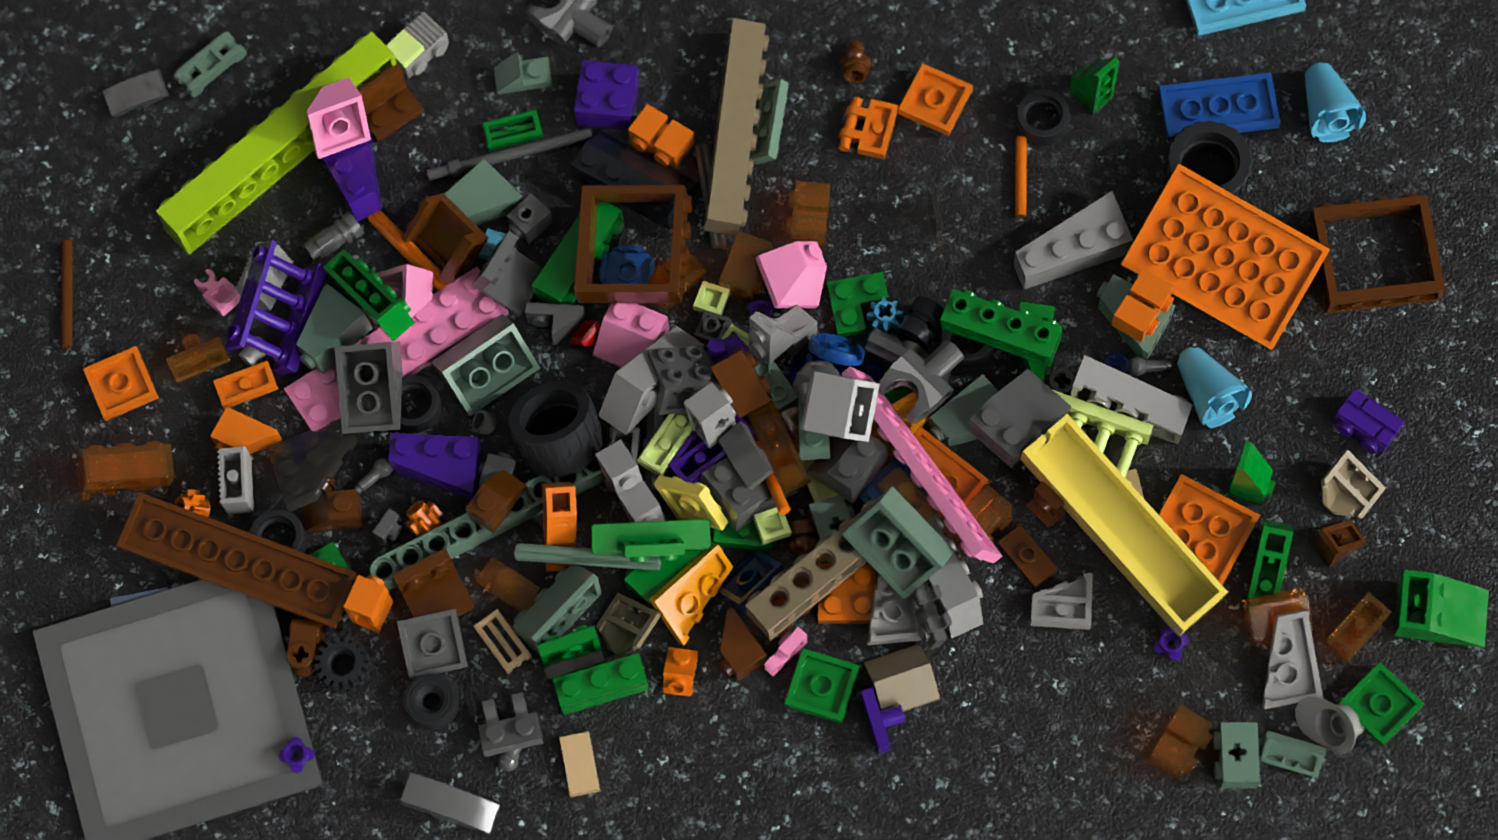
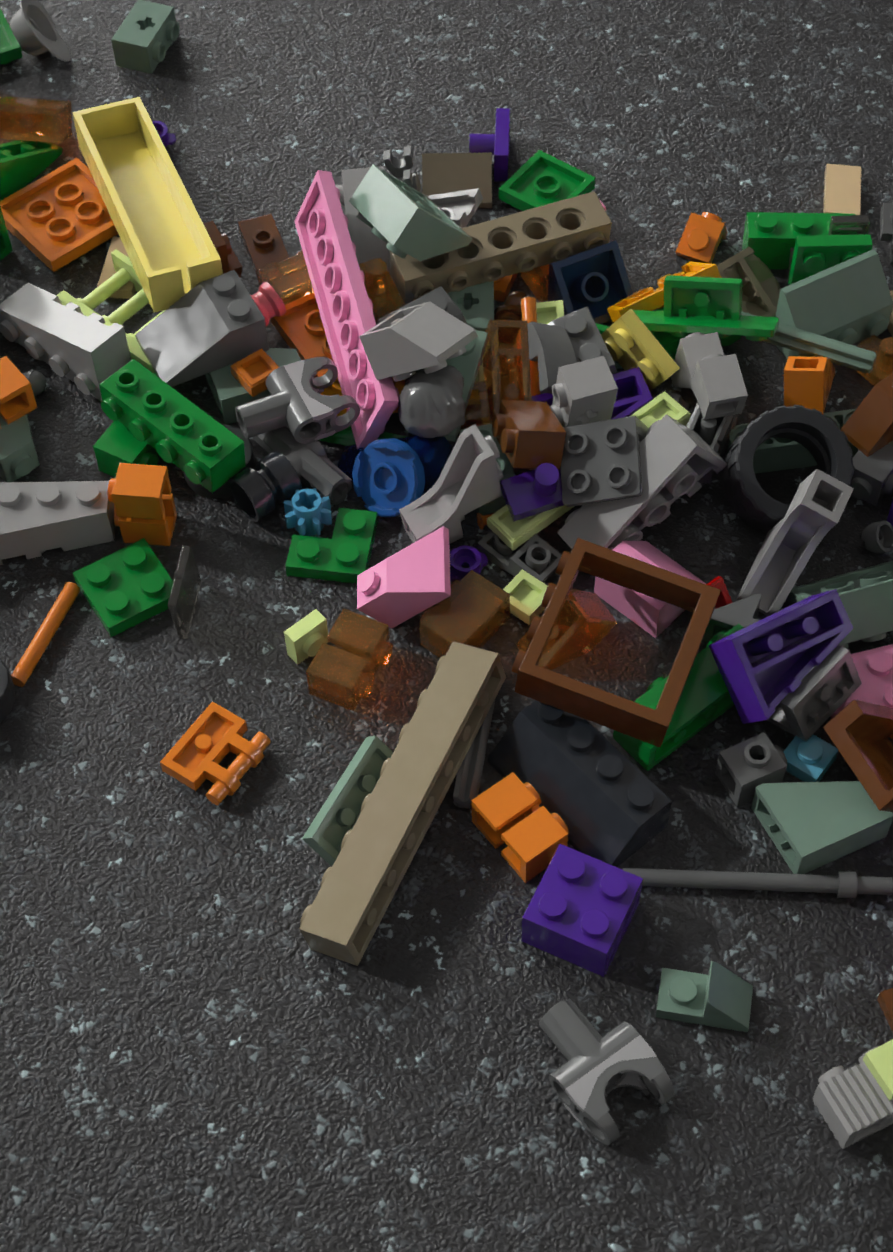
camera: 165 degrees left, 15 degrees down
(515, 139) = (749, 932): green tile -> none
(526, 271) = (777, 652): none -> dark purple wedge
(528, 372) = (794, 539): none -> light grey arch
(626, 266) = (627, 665): blue tile -> none
(739, 648) = (633, 233): reddish brown slope -> none
(843, 220) = (306, 636): none -> yellowish green plate
(855, 63) = (190, 849): reddish brown piece -> none
(935, 99) = (103, 761): orange plate -> none
(965, 401) = (253, 371): none -> orange tile
(983, 227) = (126, 587): none -> green plate
(990, 468) = (268, 302): none -> coral wheel
(995, 270) = (143, 503): none -> orange piece
(1064, 605) = (247, 191): light grey wing -> none
(1118, 360) = (56, 387): clear blue plate -> none
(1180, 743) = (204, 47): clear orange piece -> none
(1292, 661) = (45, 77): light grey wing -> none
(1292, 754) = (90, 26): sand green plate -> none

